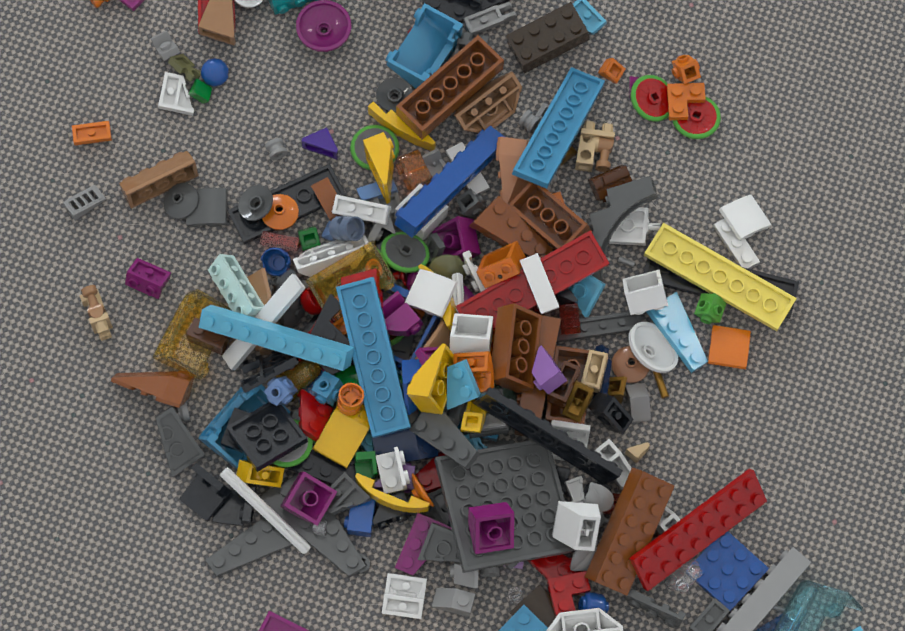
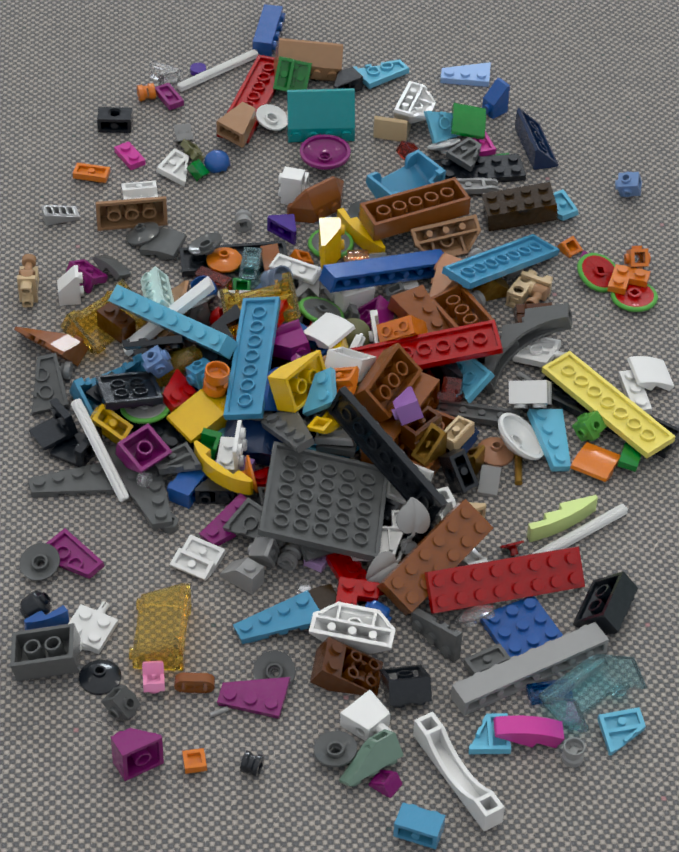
camera: 20 degrees right, 25 degrees down
(80, 56) = (115, 119): none -> black brick
(119, 92) = (129, 155): none -> dark pink plate
(142, 305) = (69, 287): none -> white slope
(154, 145) = (139, 190): none -> white slope
(166, 256) = (110, 264): none -> dark grey slope
(309, 84) = (293, 183): none -> white brick
(311, 214) = (250, 264): none -> clear light blue slope
(344, 99) = (318, 201): none -> dark orange wedge
(352, 179) = (302, 256): none -> orange slope
(491, 527) = (300, 505): magenta slope -> none
(539, 283) = (430, 347): white tile -> none
(577, 525) = (384, 527): white slope -> none
(686, 478) = (512, 547): none -> red plant
(724, 424) = (562, 519): none -> yellowish green slope
(741, 439) = (586, 529): none -> white axle
(759, 333) = (629, 458): none -> green slope
(793, 517) = (607, 603): none -> black slope

